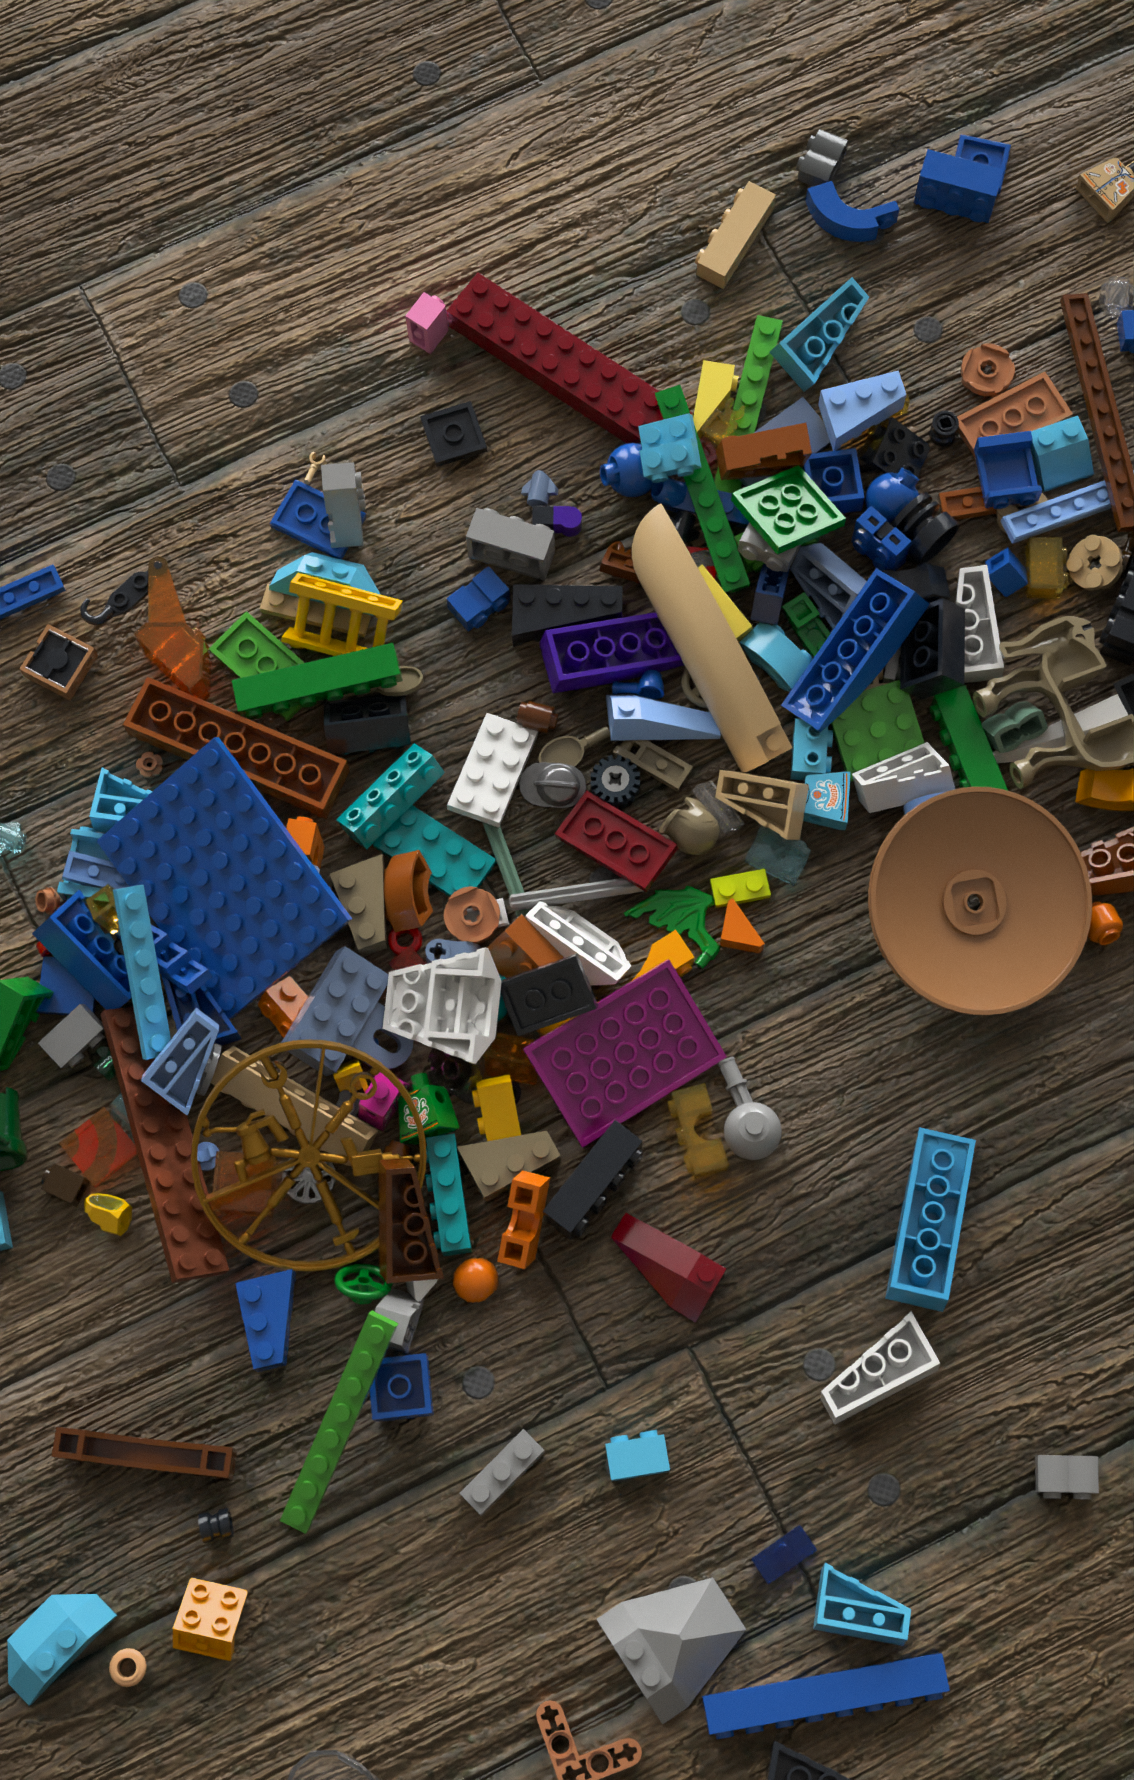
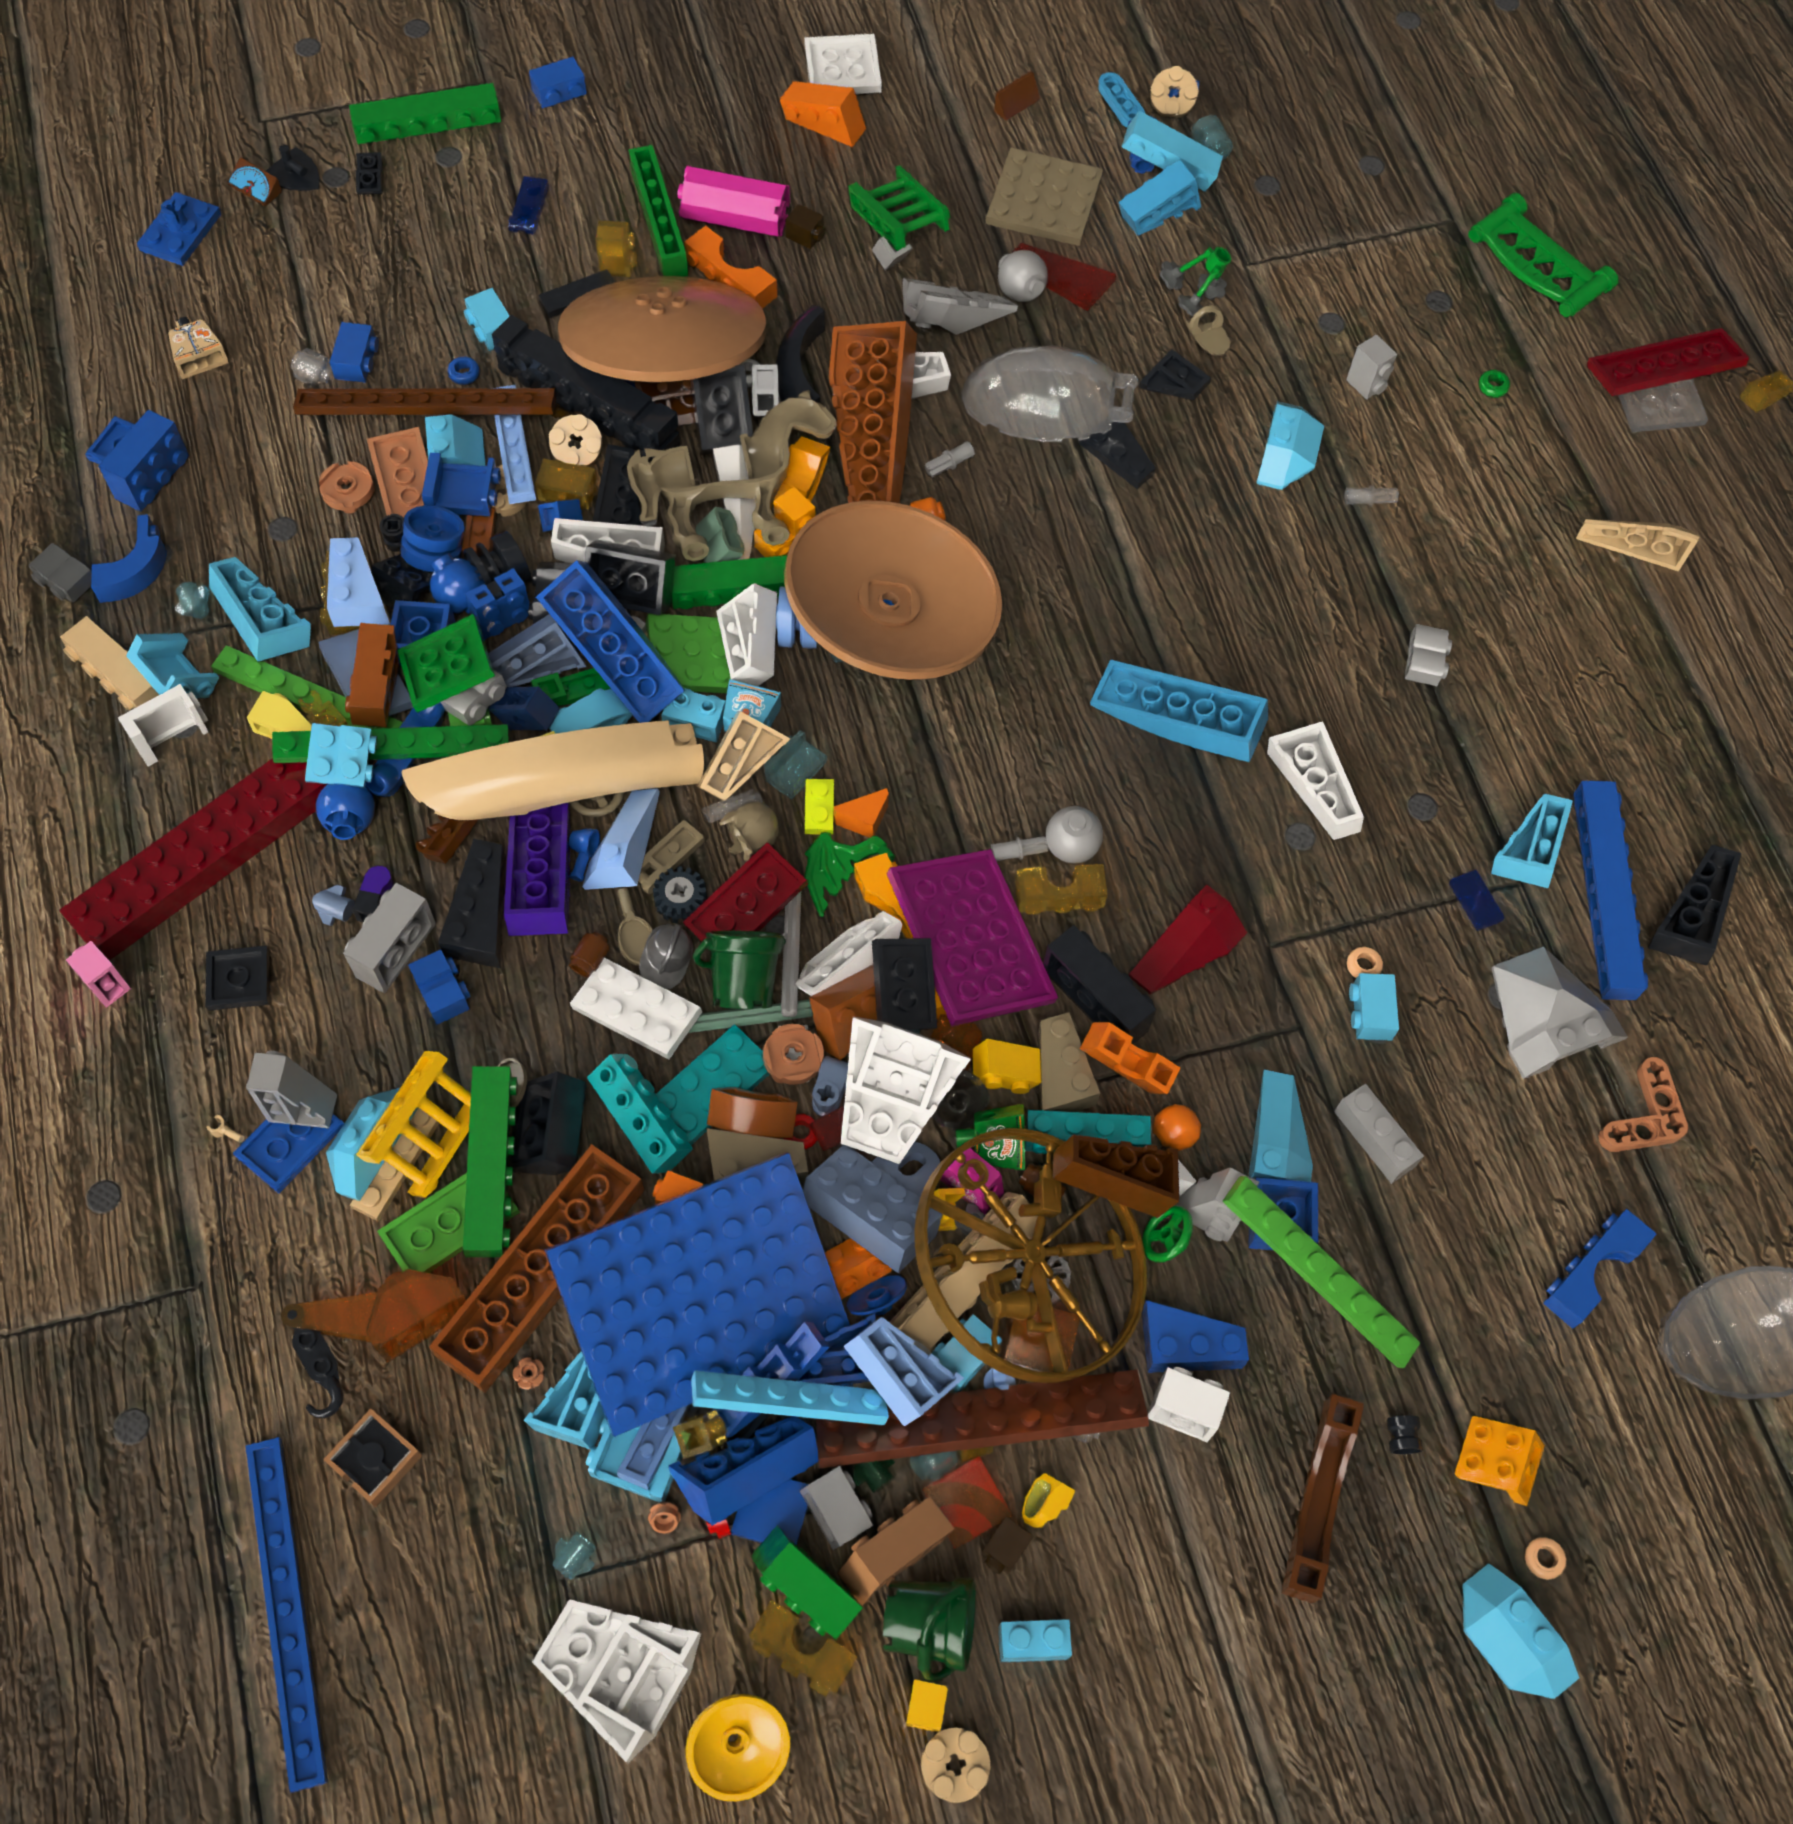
camera: 85 degrees left, 10 degrees down
(49, 1092) = (894, 1548): none -> medium nougat wedge
(206, 1320) = (1188, 1404): none -> white brick
(224, 1115) = (958, 1358): none -> medium azure brick
(258, 1031) = (877, 1296): none -> blue dish
(440, 1724) = (1576, 1294): none -> blue arch
(483, 1380) = (1280, 1134): none -> medium azure wedge
(543, 849) = (741, 966): none -> dark green piece
(670, 279) = (162, 719): none -> white panel
(687, 1431) = (1366, 953): none -> light nougat piece
(739, 281) = (164, 665): none -> medium azure panel
(823, 277) = (192, 600): none -> clear light blue piece
(939, 461) = (429, 535): none -> blue wheel
(1021, 618) = (615, 497): none -> black wing
(1049, 788) = (795, 512): none -> light orange brick

